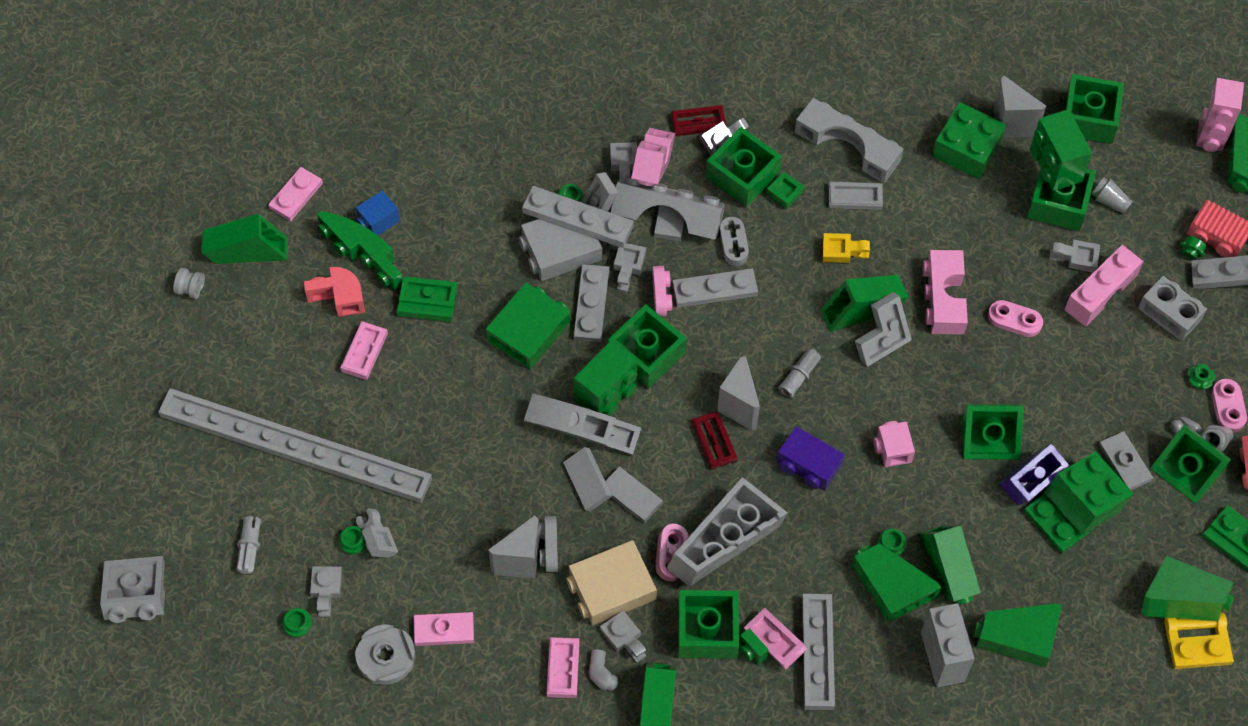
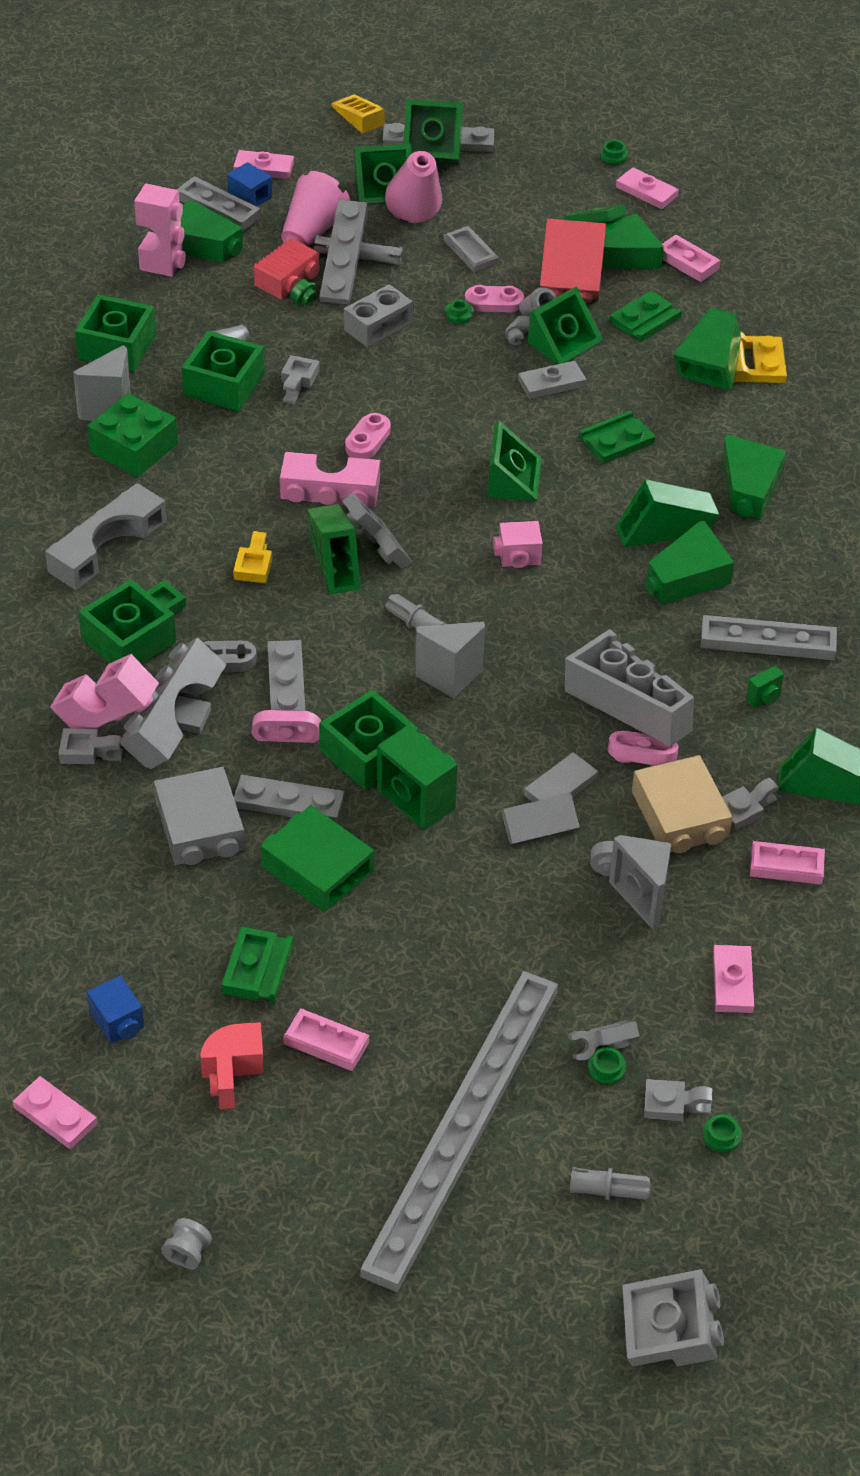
camera: 85 degrees left, 15 degrees down
(244, 241) = (133, 1169): green slope -> none
(358, 241) = (155, 1033): green slope -> none
(370, 648) = (766, 1056): light grey plate -> none
(571, 191) = (126, 806): green plate -> none
(578, 216) = (175, 782): light grey plate -> none
(582, 423) = (466, 815): light grey slope -> none
(599, 674) = (792, 832): light grey arm -> none
(601, 192) = (149, 760): light grey plate -> none
(628, 261) = (238, 753): light grey plate -> none
(679, 126) = (38, 693): dark red tile -> none
(708, 624) = (741, 718): green brick -> none
(719, 134) = (71, 651): plate -> none
(721, 461) = (495, 706): dark red tile -> none
(777, 638) = (753, 662): bright pink plate -> none
(810, 459) = (532, 615): dark purple brick -> none
(855, 195) = (180, 545): light grey tile -> none
(893, 540) = (636, 564): green plate -> none
(947, 645) = (776, 519): light grey brick -> none
(1034, 474) = (570, 437): brick -> none
(1060, 150) = (192, 334): green brick -> none
(1088, 493) = (596, 399): green brick -> none
(1097, 289) = (359, 368): bright pink arch -> none

